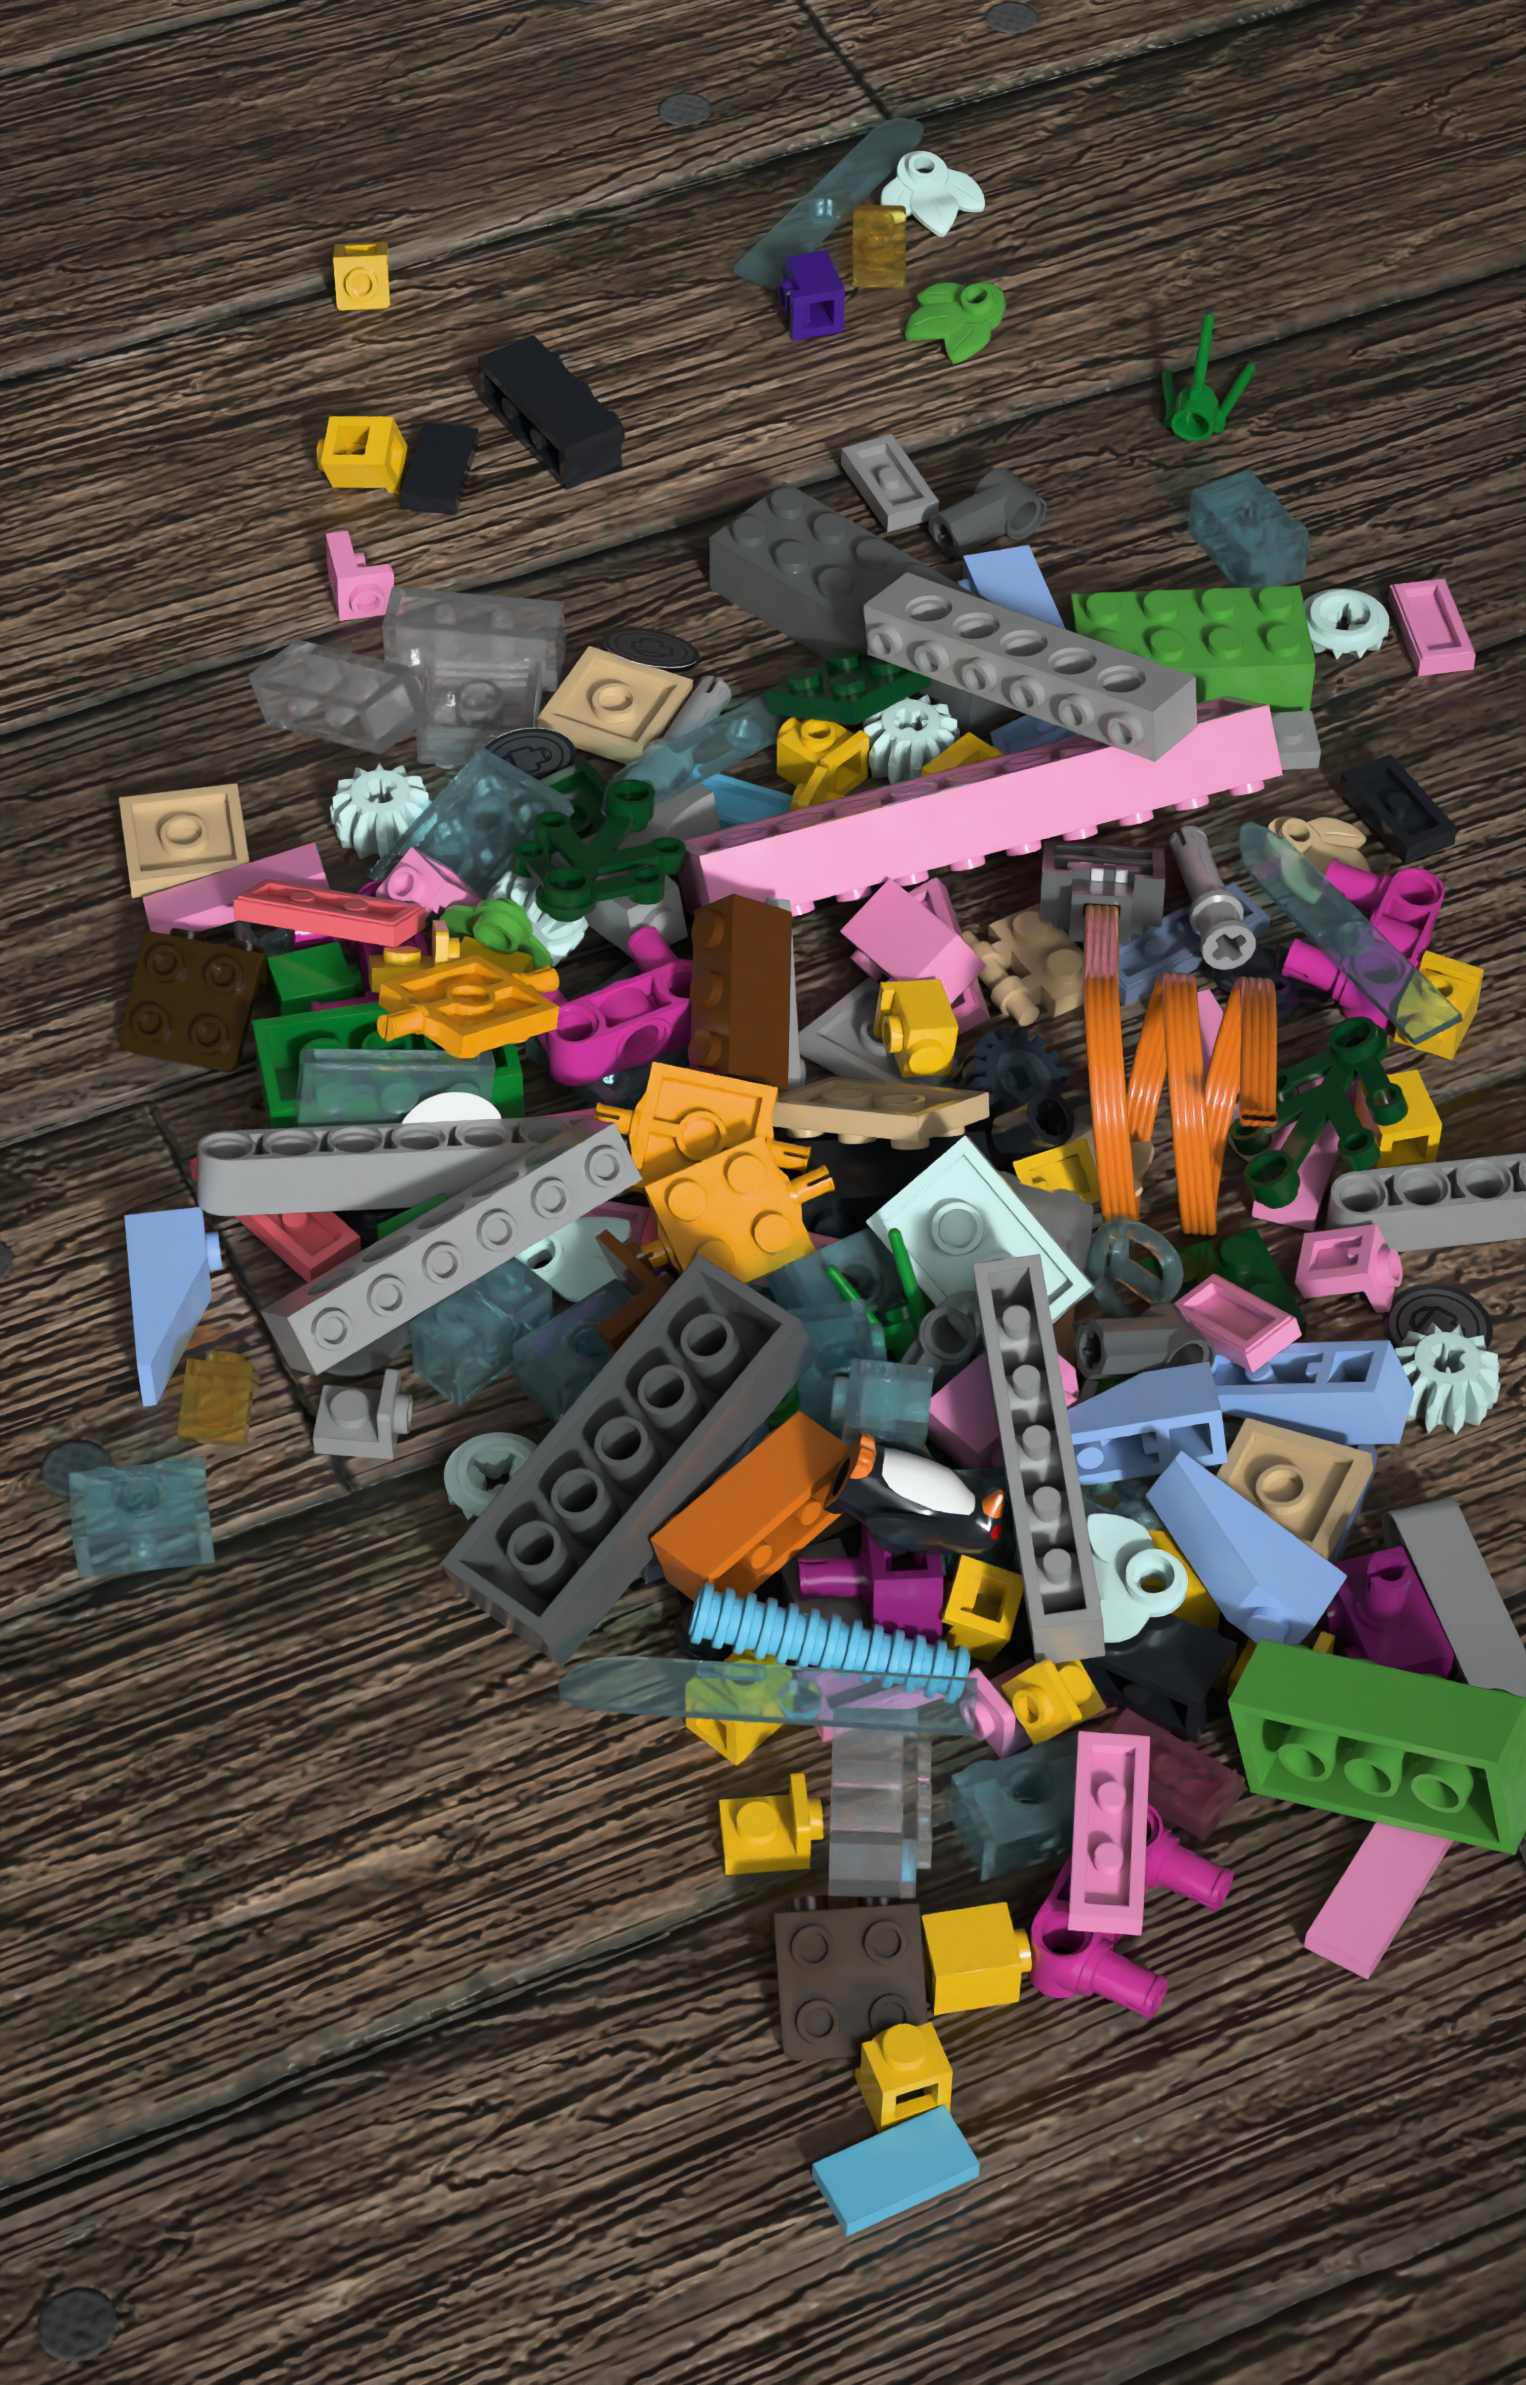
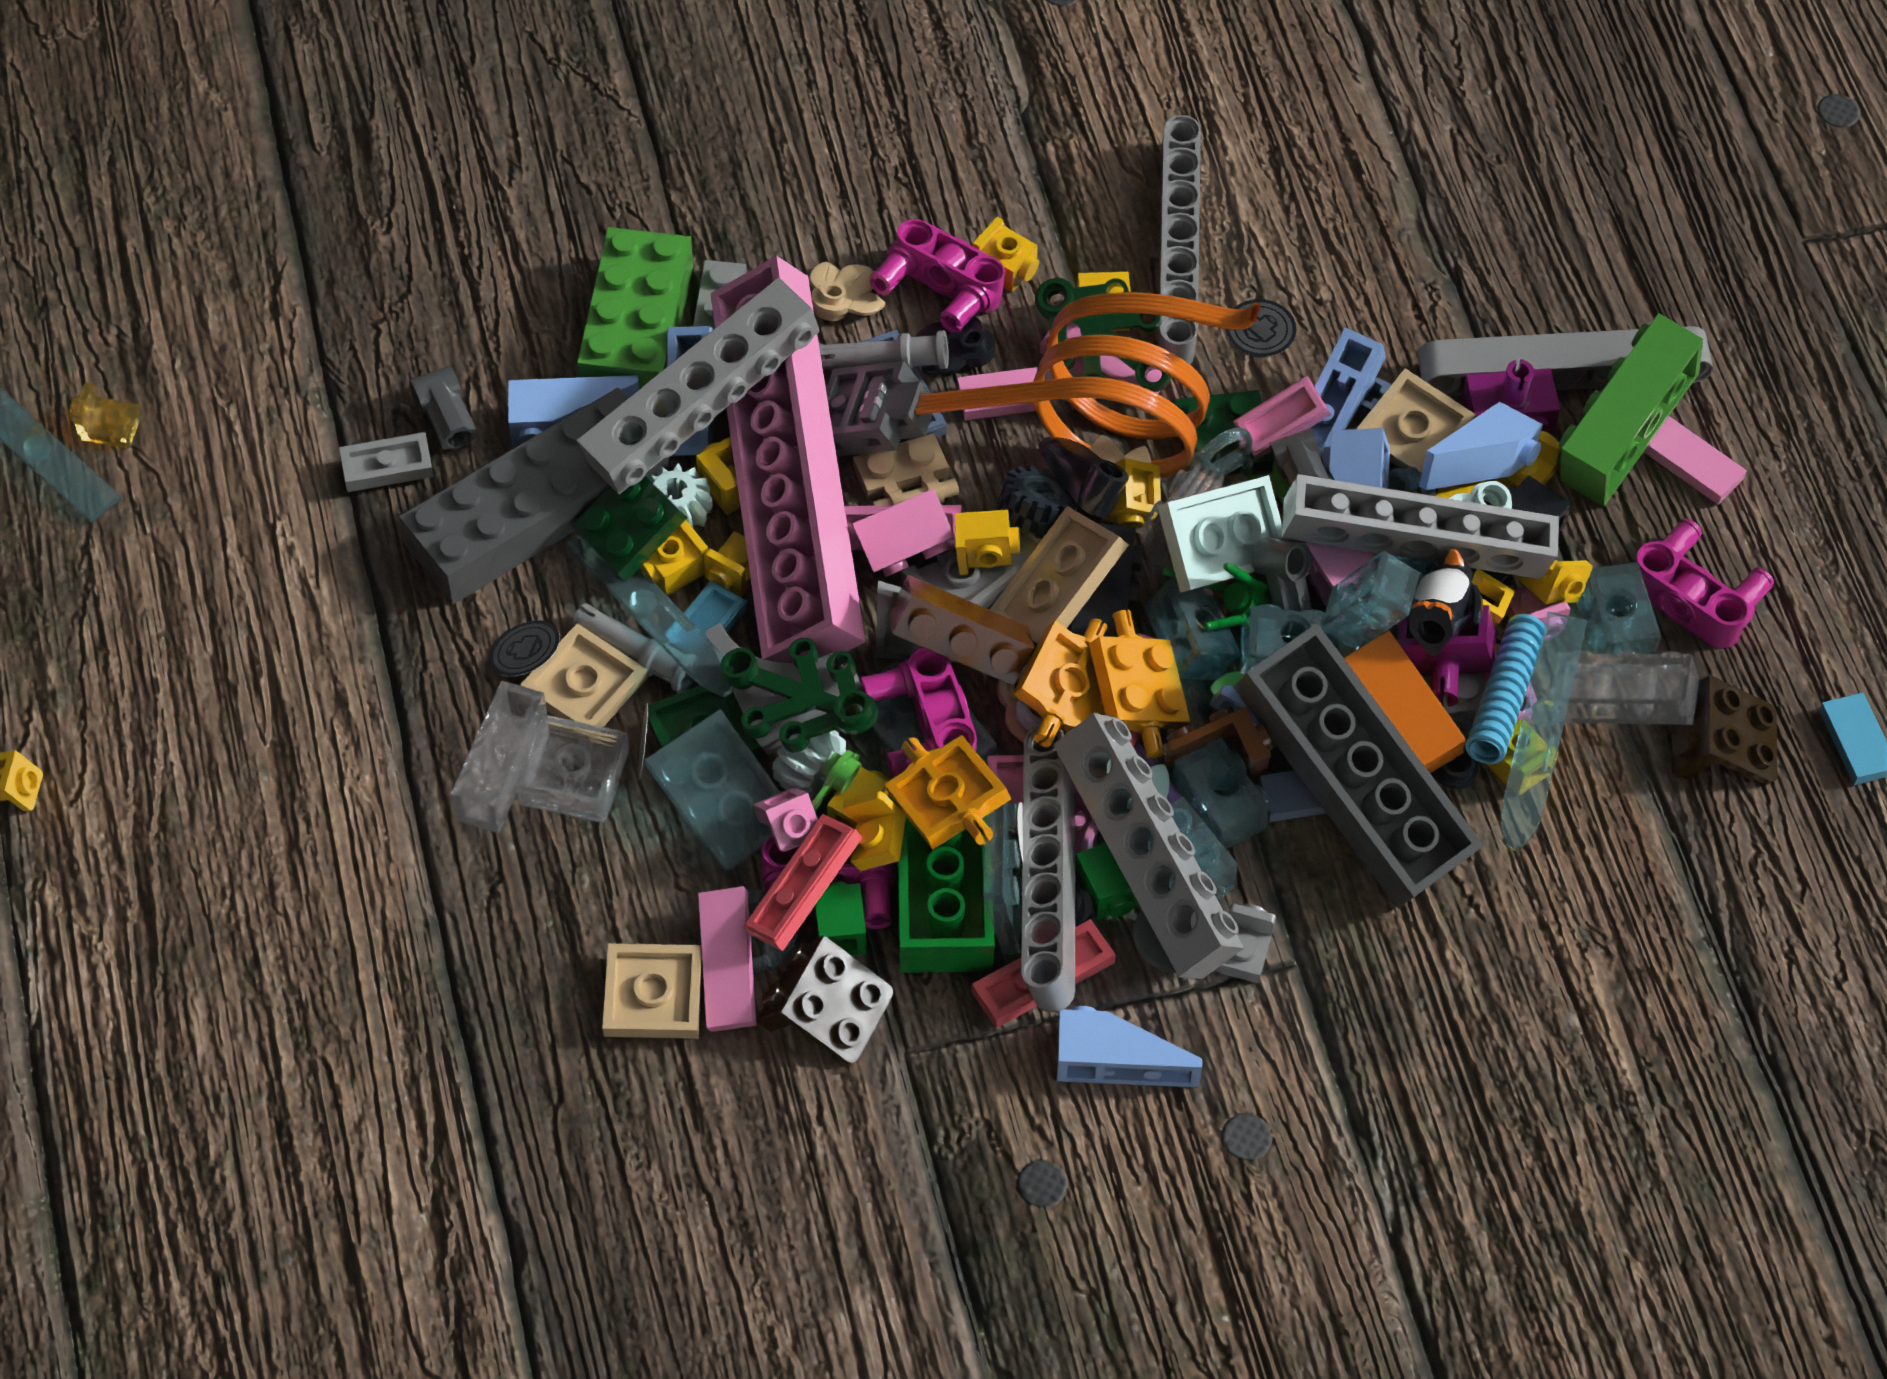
camera: 80 degrees left, 10 degrees up
(141, 1517) = (1323, 1062): clear light blue brick -> none
(217, 1400) = (1218, 1028): clear yellow bracket -> none
(339, 696) = (546, 853): clear brick -> none
(355, 587) = (391, 840): bright pink bracket -> none
(363, 453) = (250, 794): yellow brick -> none
(376, 808) = (644, 848): light aqua gear -> none
(439, 468) = (265, 761): black tile -> none
(482, 1457) = (1309, 851): light aqua gear -> none
(550, 412) = (233, 670): black brick -> none
(770, 1830) = (1613, 757): yellow bracket -> none
(812, 295) = (149, 469): dark purple brick -> none
(899, 2063) = (1808, 717): yellow brick -> none
(933, 194) = (47, 372): light aqua plate -> none
(958, 316) = (205, 387): bright green plate -> none
(973, 1958) = (1727, 658): yellow brick -> none
(1109, 1833) = (1675, 563): bright pink plate -> none
(1183, 1780) = (1603, 537): clear pink plate -> none
(1195, 409) = (364, 254): green plant -> none
(1248, 532) = (515, 253): clear light blue brick -> none
(1345, 935) = (951, 282): clear light blue piece -> none
(1349, 1263) = (1219, 356): bright pink bracket -> none
(1364, 614) = (611, 210): light aqua gear -> none
(1397, 809) = (814, 234): black plate -> none
(1431, 627) = (631, 175): bright pink tile -> none
(1449, 1376) = (1317, 326): light aqua gear -> none

